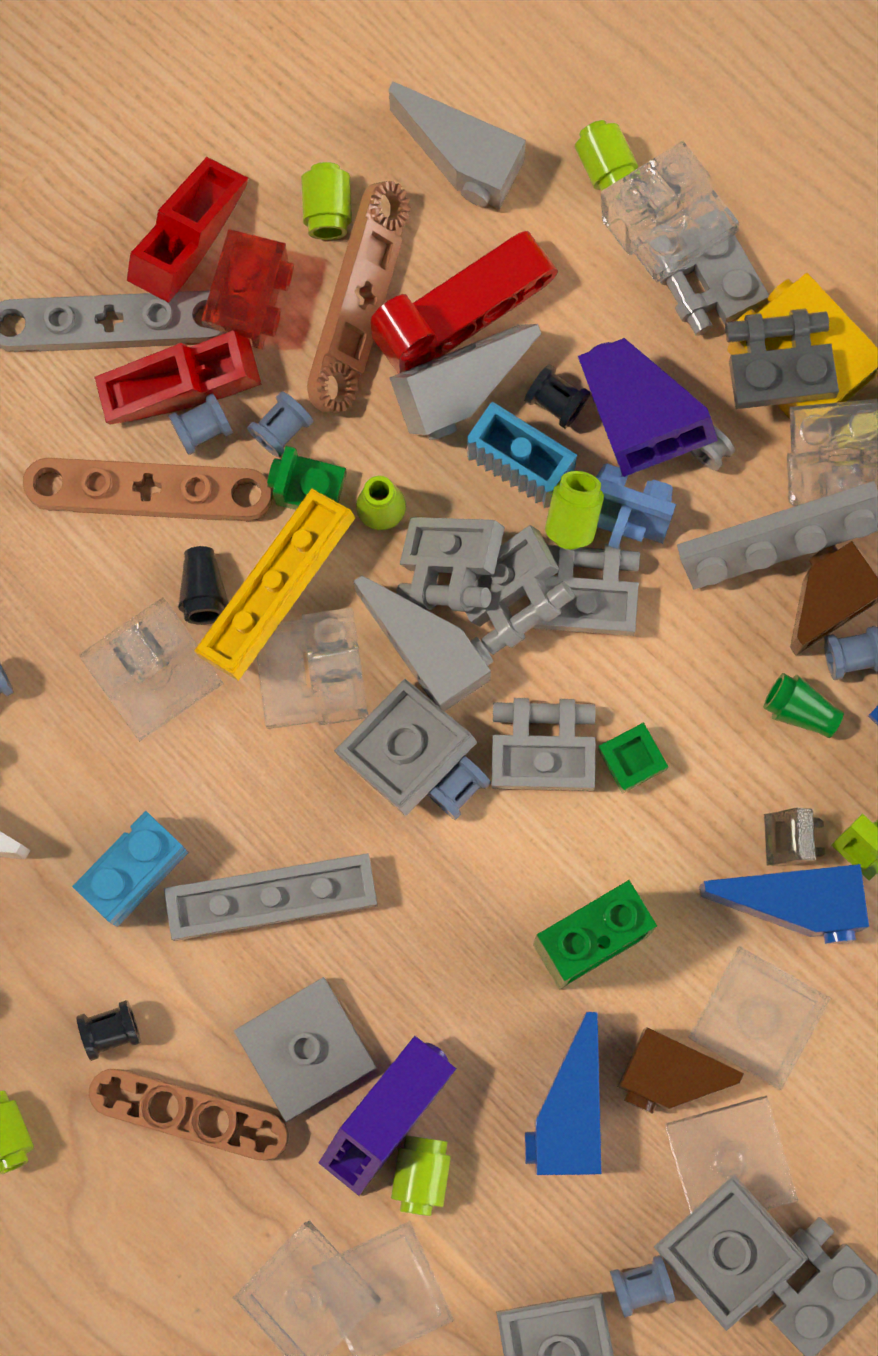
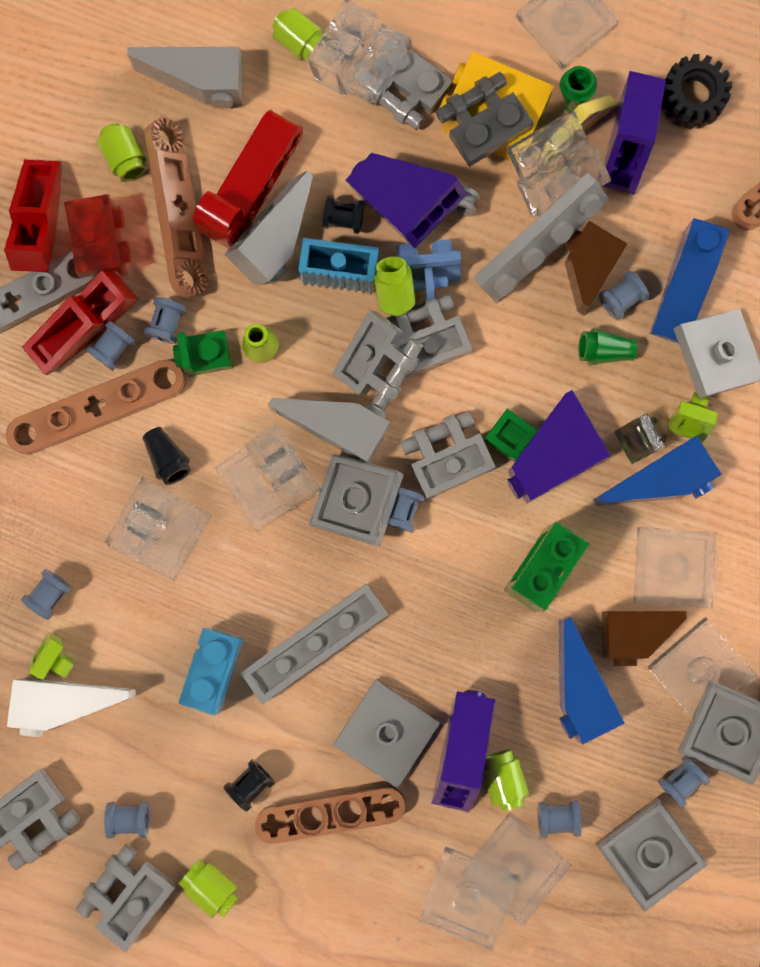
camera: 25 degrees left, 5 degrees up
(274, 584) = (215, 432): yellow tile -> none
(452, 547) = (325, 349): light grey plate -> none
(465, 1256) = (559, 819): none -> sand blue bush
(679, 805) = (557, 452): none -> dark purple slope

